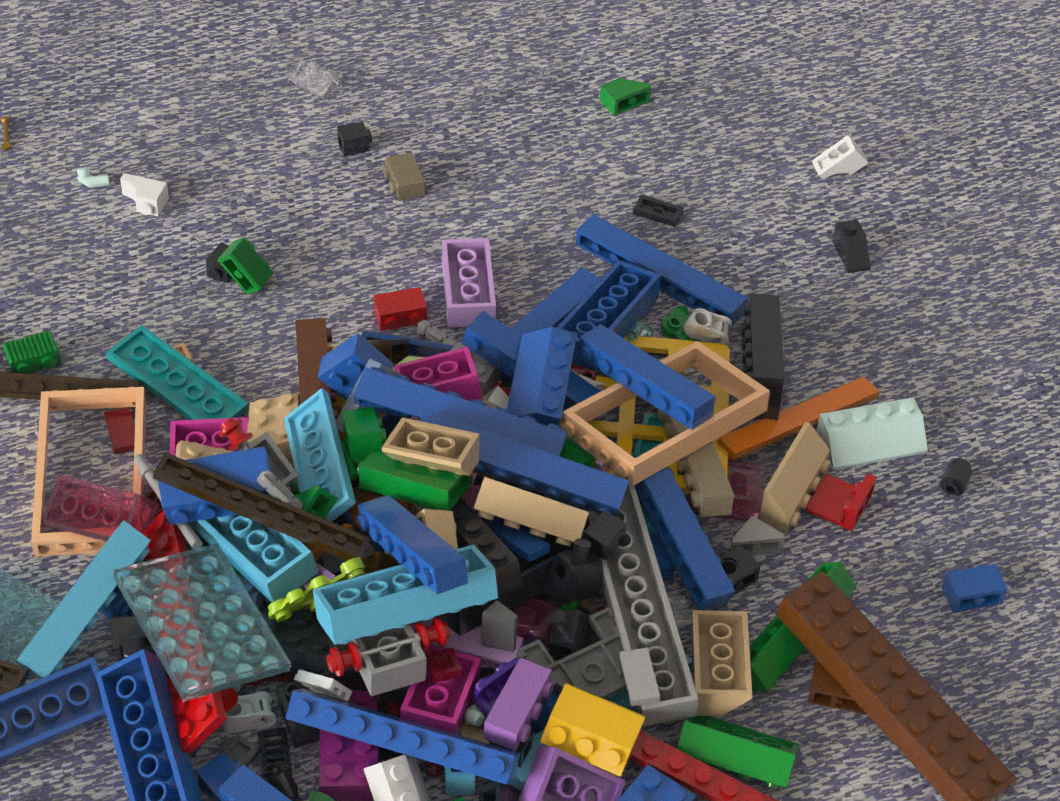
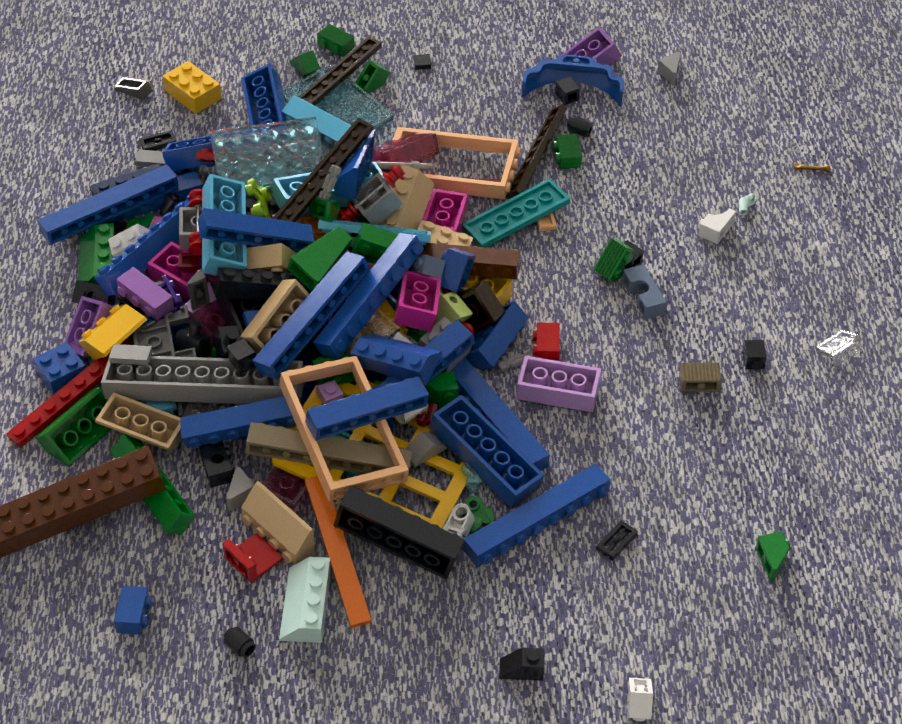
camera: 110 degrees right, 0 degrees up
(295, 230) = (640, 280): none -> sand blue arch
(433, 446) = (319, 247): tan slope -> none

